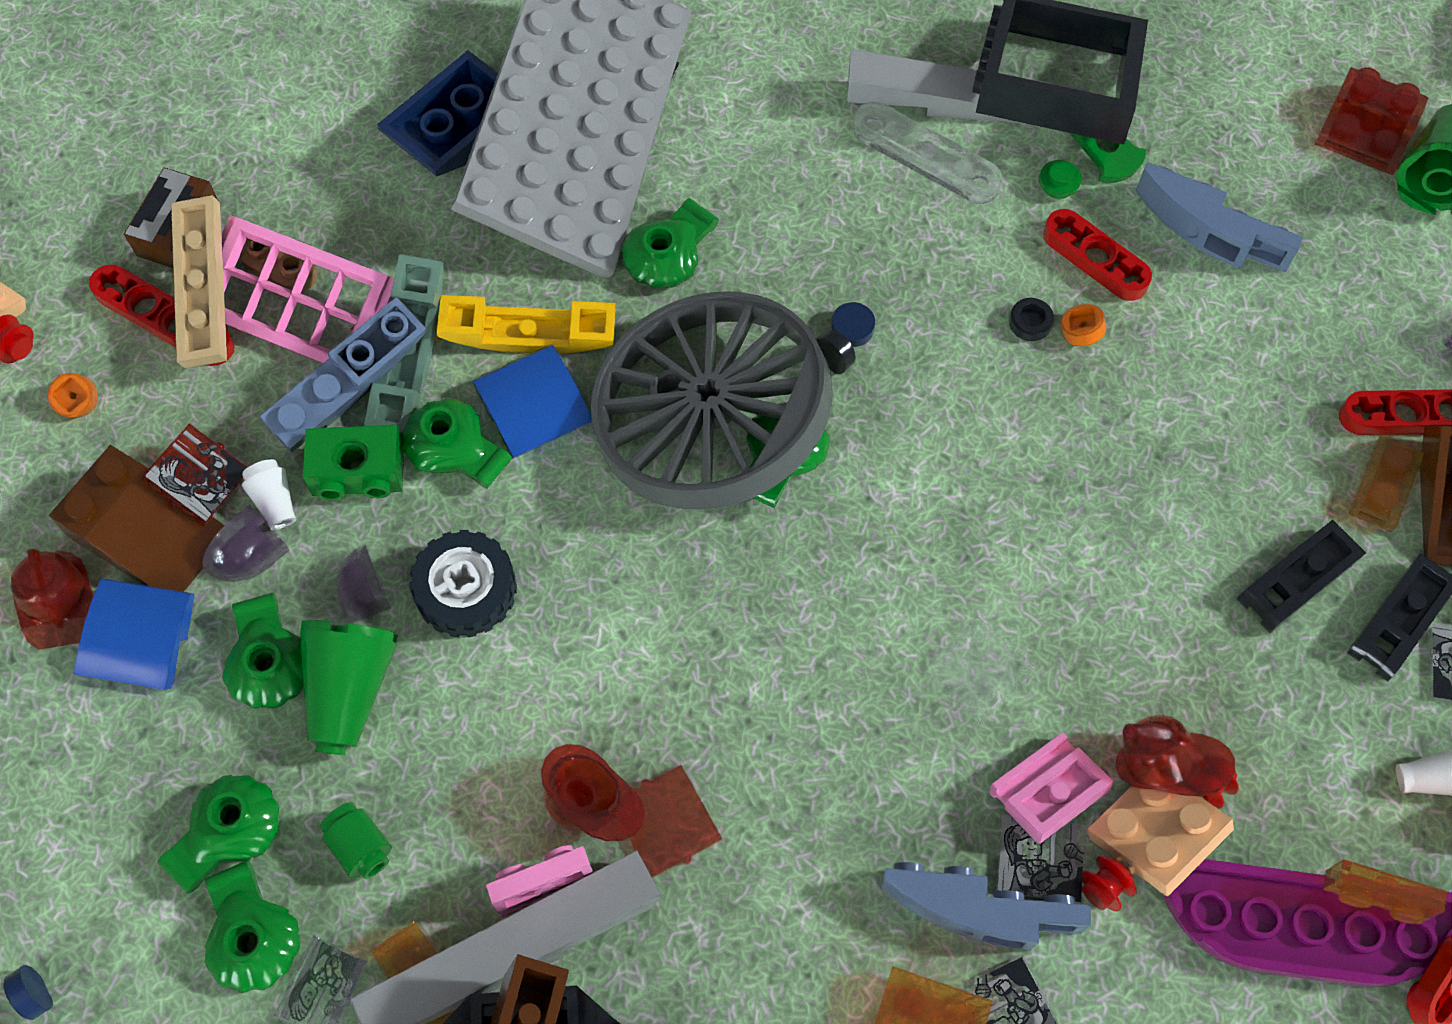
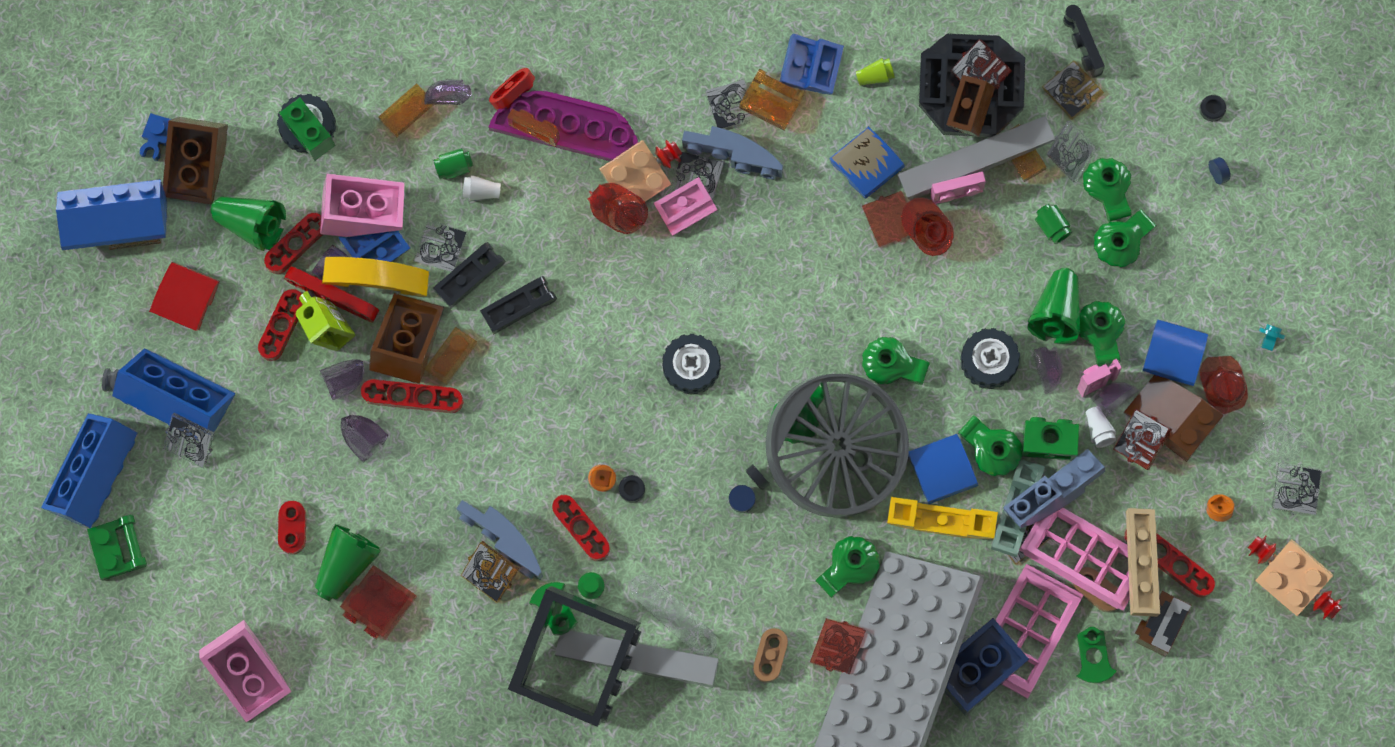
camera: 165 degrees left, 10 degrees up
(267, 555) = (1097, 377): none -> bright pink plate
(284, 194) = (1094, 672): none -> green piece
(349, 182) = (1052, 587): none -> bright pink piece
(620, 553) = (899, 367): none -> green animal
(672, 138) = (837, 646): none -> clear red piece
(722, 922) = (867, 162): none -> slope
(771, 121) = (769, 655): none -> medium nougat plate
(979, 513) = (691, 364): none -> black wheel
(1220, 173) = (489, 571): none -> piece

